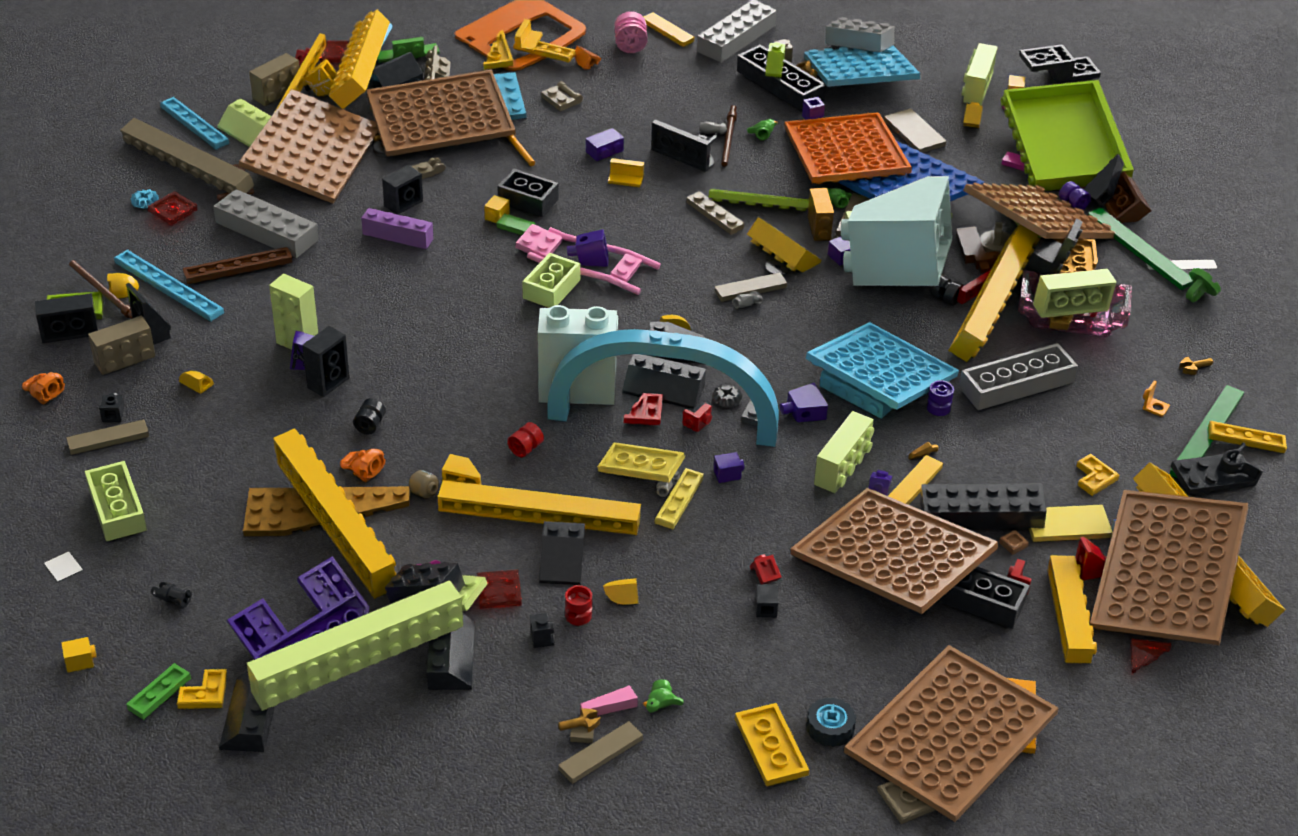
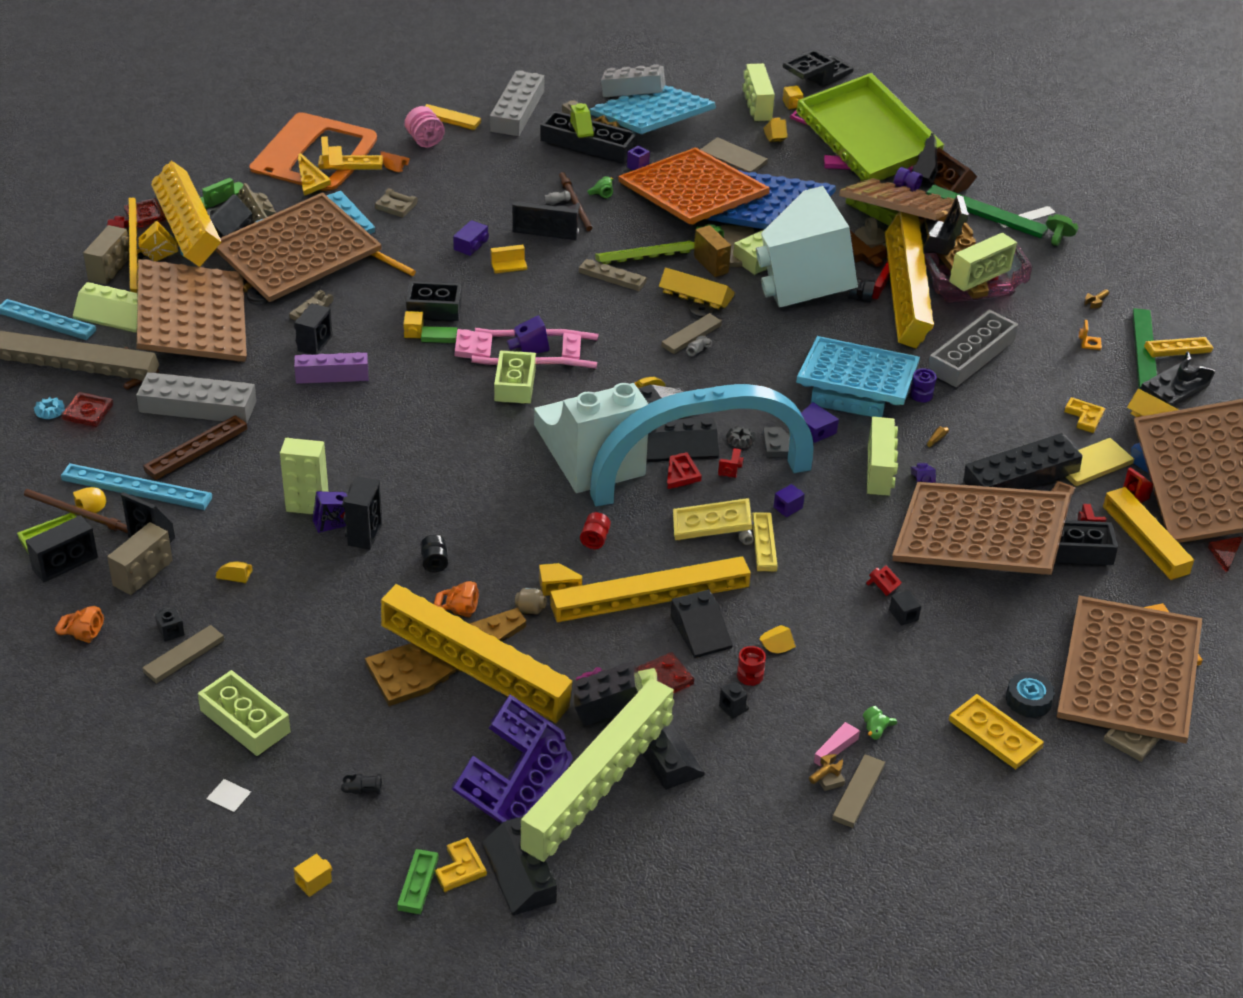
camera: 25 degrees left, 0 degrees up
(837, 249) = (748, 279): dark purple brick -> none
(911, 484) = (950, 462): yellow tile -> none

